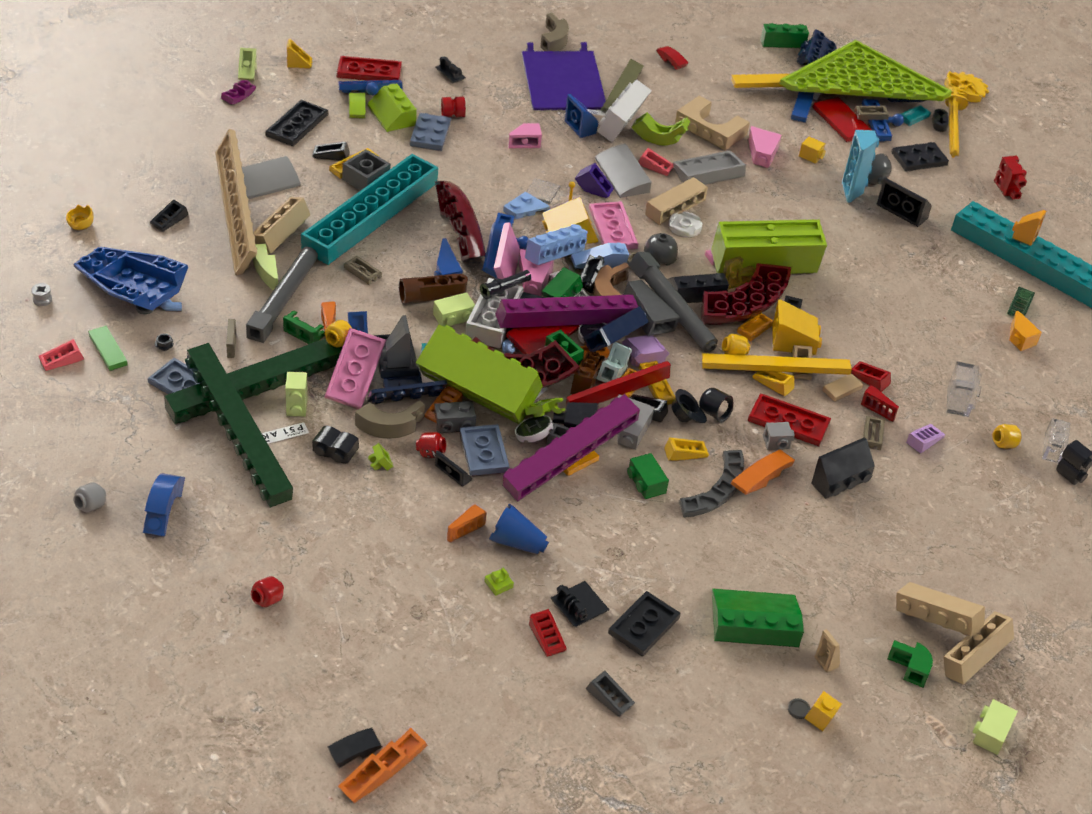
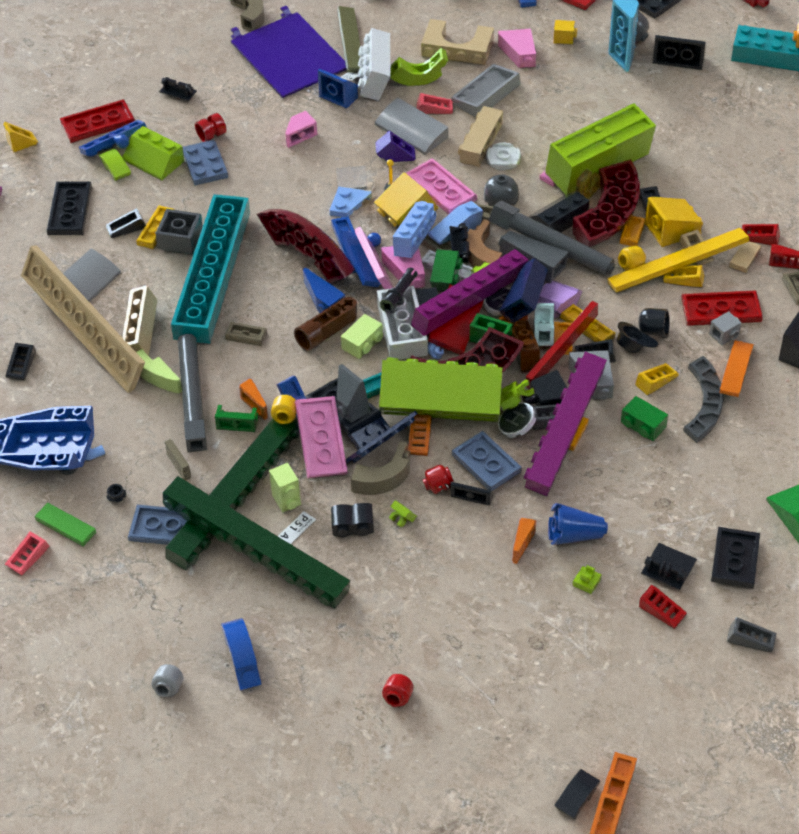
camera: 20 degrees left, 5 degrees up
(454, 415) = (439, 441): dark grey bracket -> none

